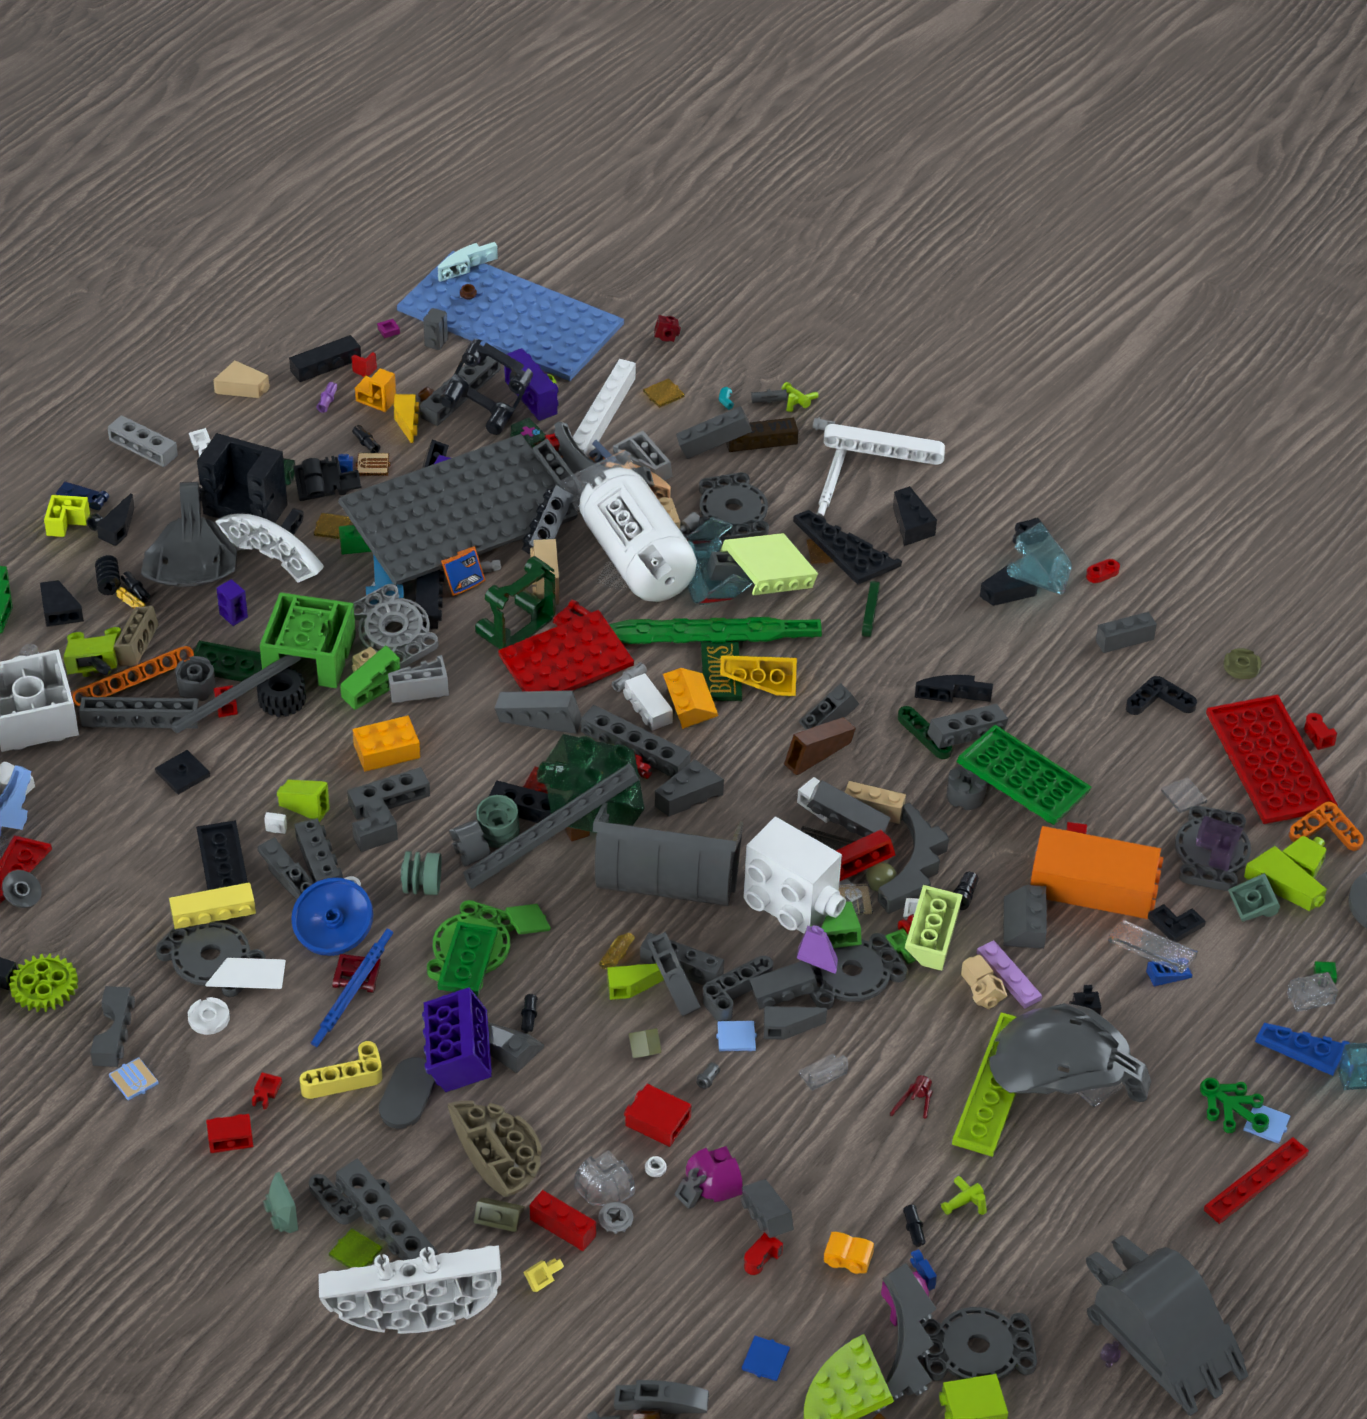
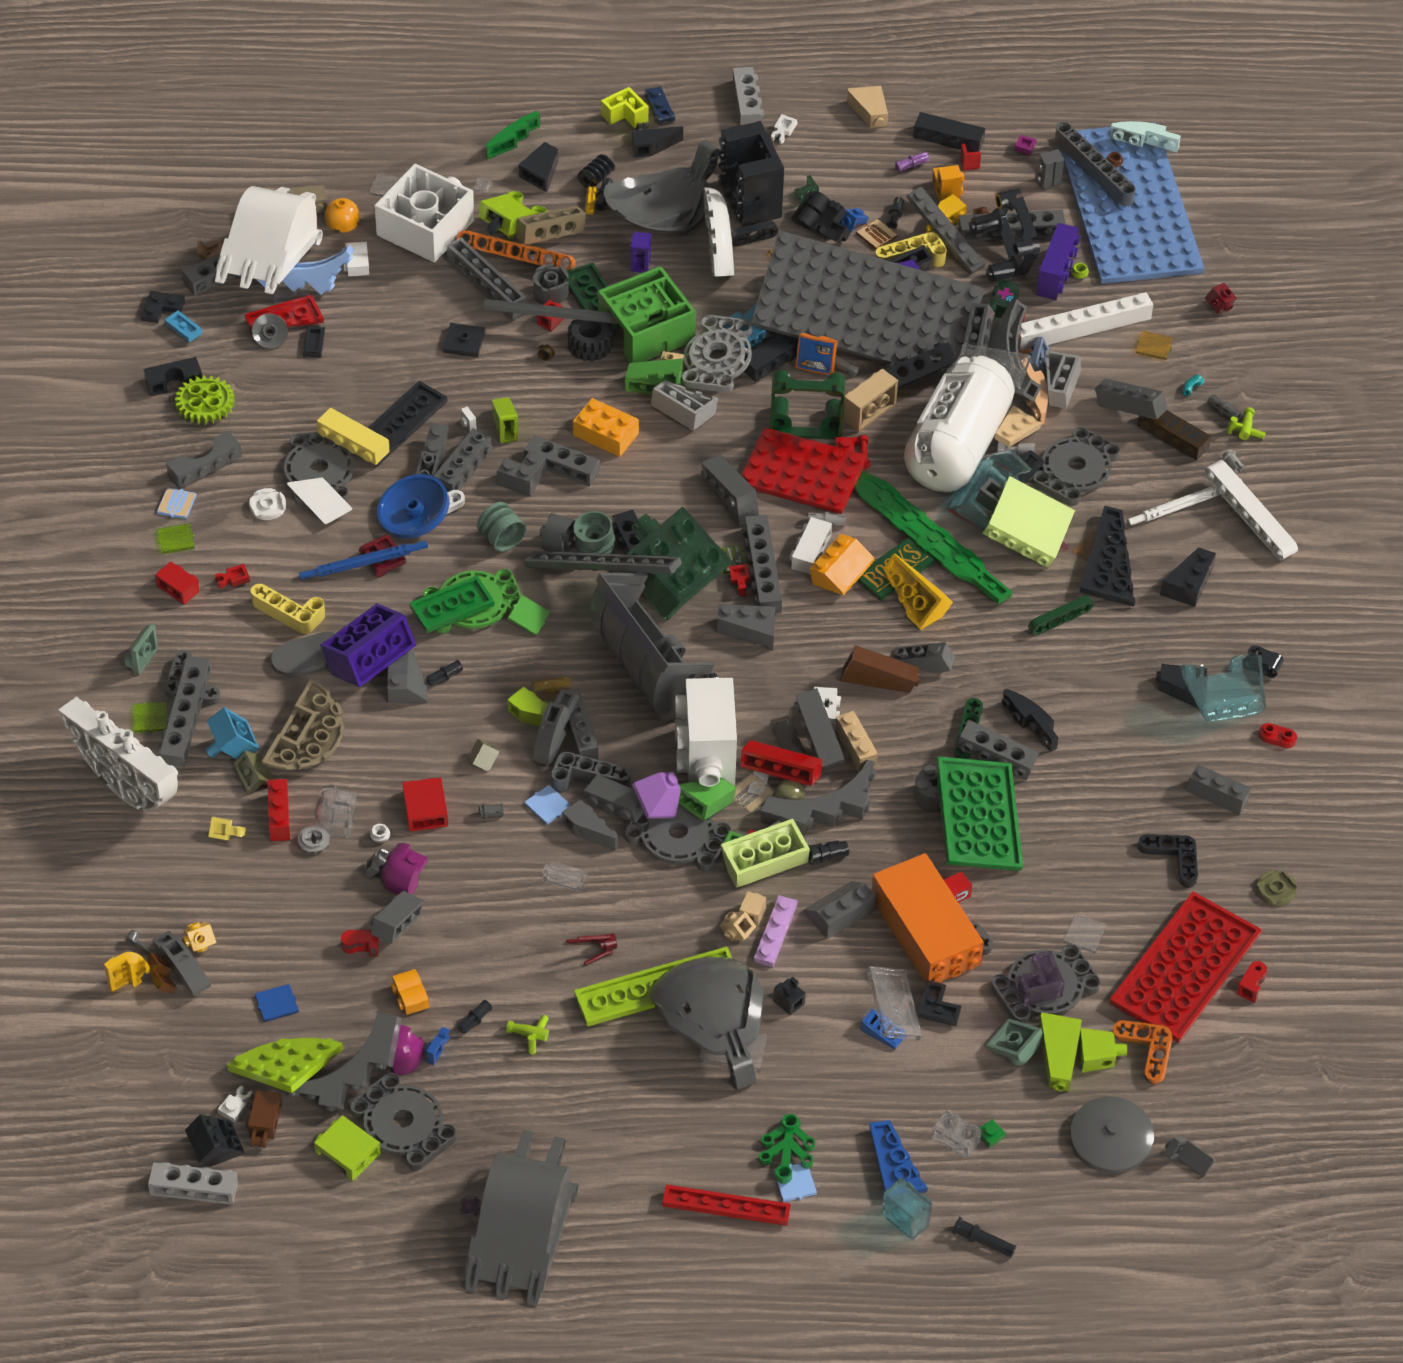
camera: 50 degrees right, 5 degrees up
(65, 869) = (314, 342): none -> black tile
(173, 1104) = (176, 538): none -> clear neon green piece
(260, 729) = (546, 352): none -> dark brown plate
(417, 449) = (930, 240): none -> light yellow beam
(426, 421) = (945, 230): none -> dark grey plate
(452, 1200) = (231, 734): none -> dark azure brick
(461, 302) = (1095, 164): none -> dark grey beam
(647, 1364) = (204, 940): none -> yellow brick

